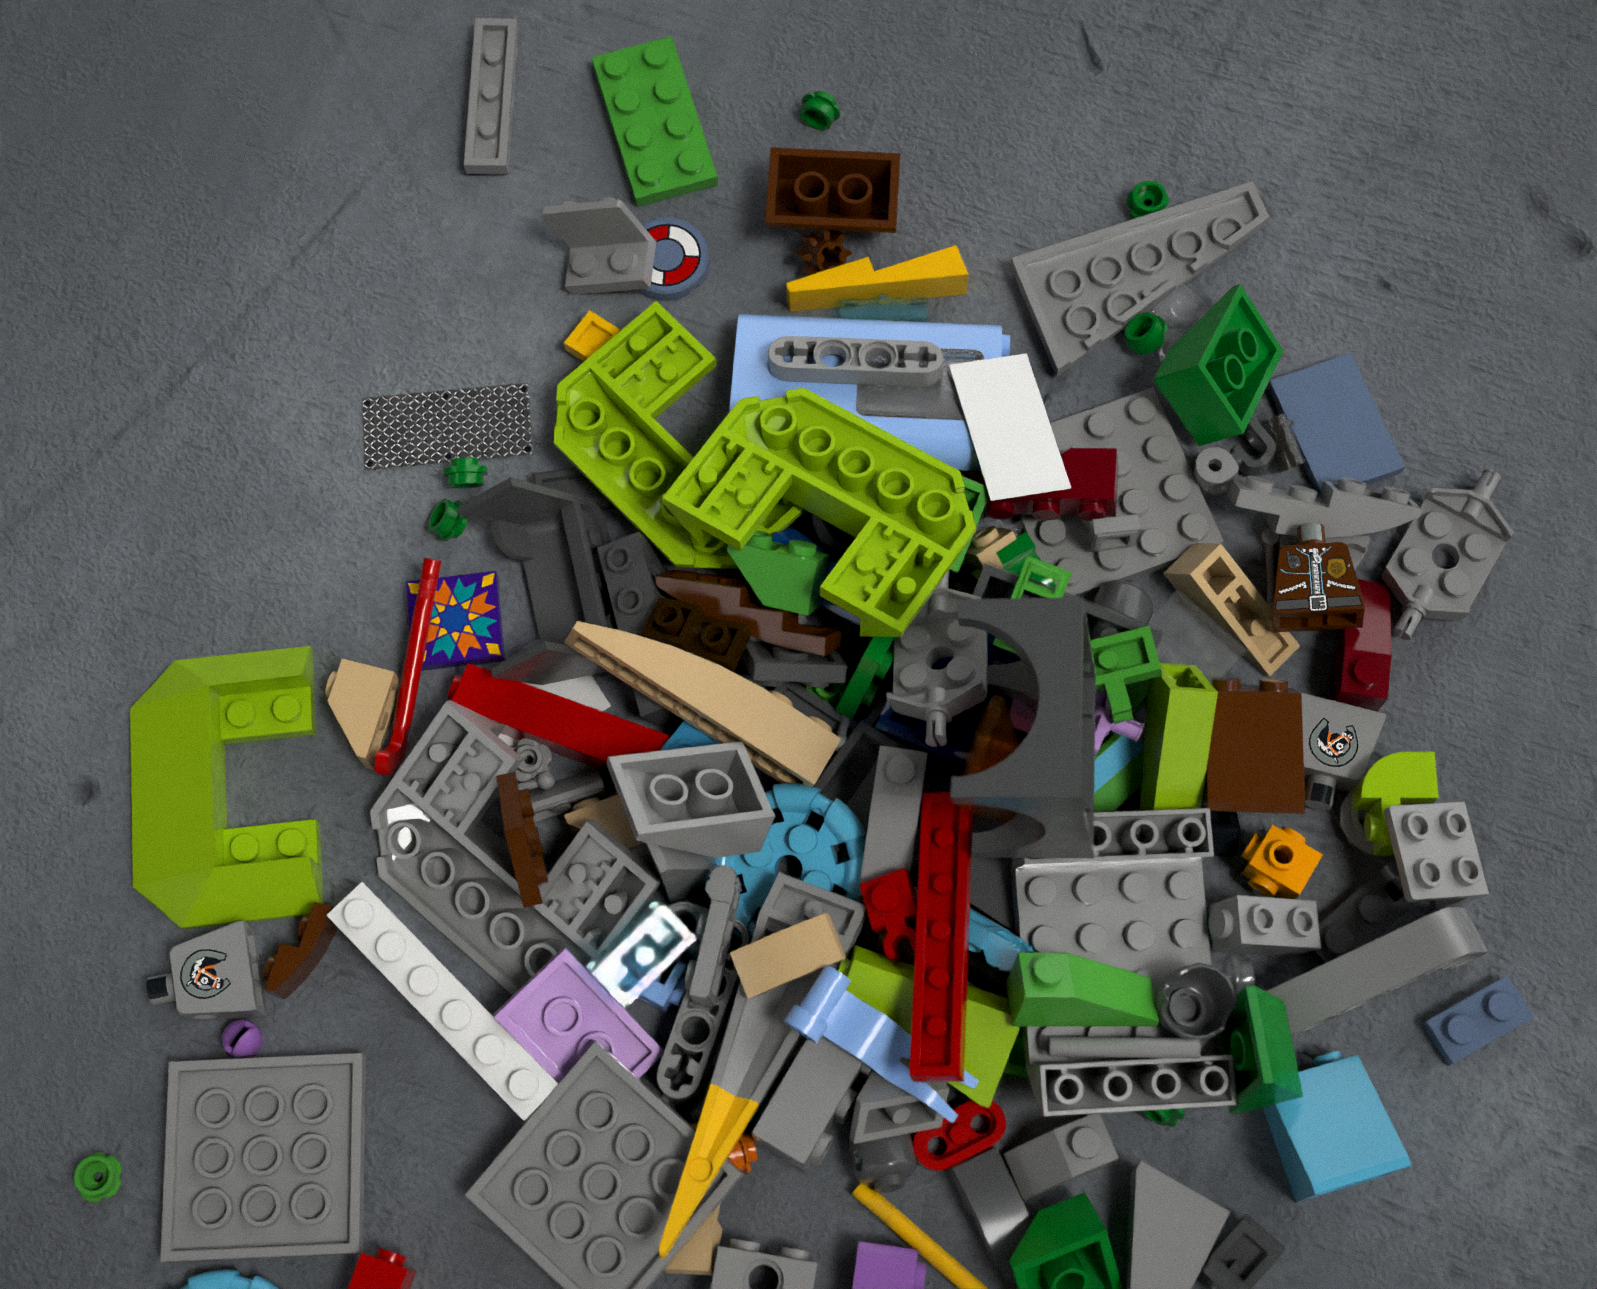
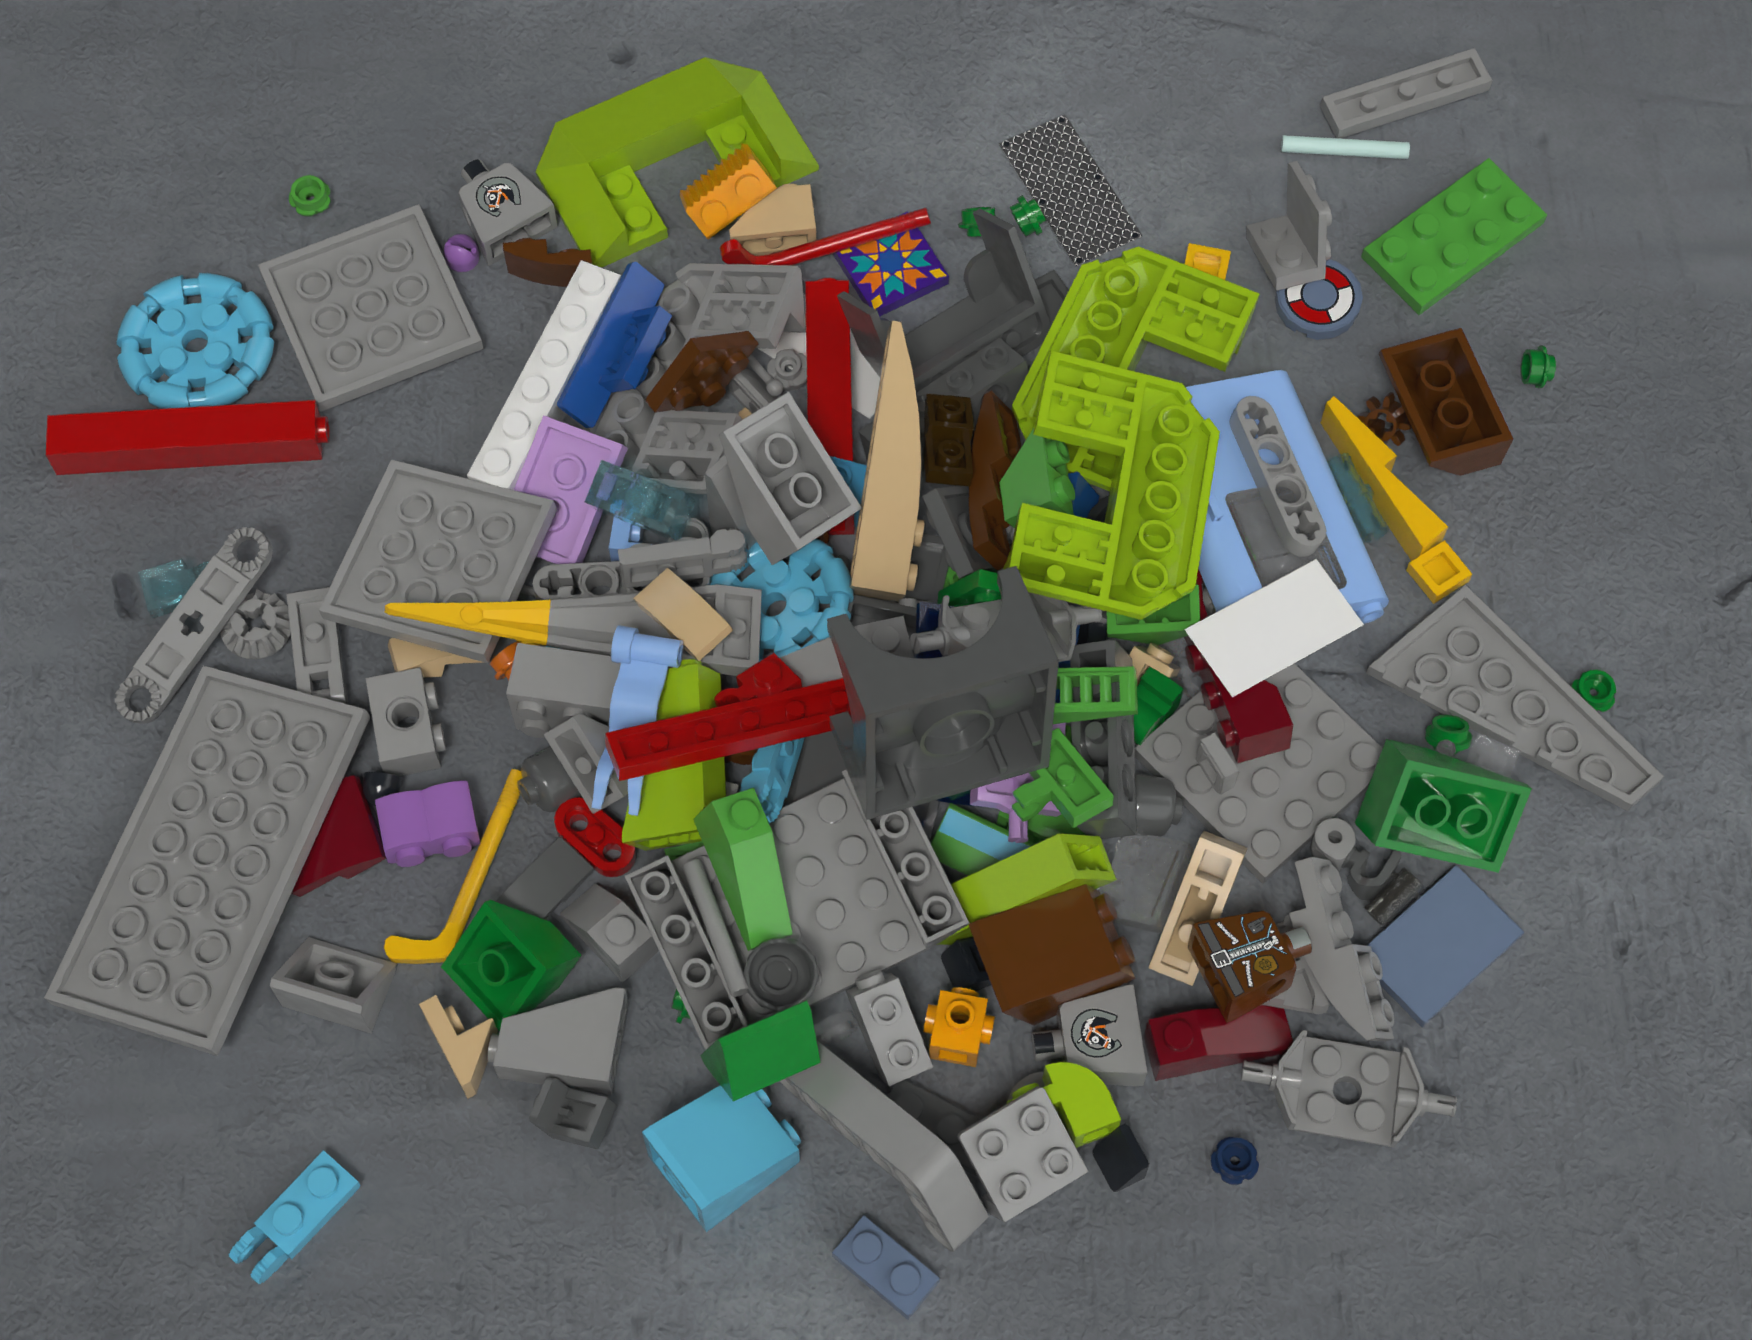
camera: 65 degrees right, 5 degrees down
(310, 741) = (727, 191): none -> light orange brick
(440, 912) = (618, 346): none -> blue bracket
(519, 171) = (1345, 147): none -> light aqua bar
(987, 275) = (1439, 572): none -> yellow plate
(1454, 769) = (1121, 1158): none -> black slope
(1484, 667) = (1239, 1148): none -> dark blue plate

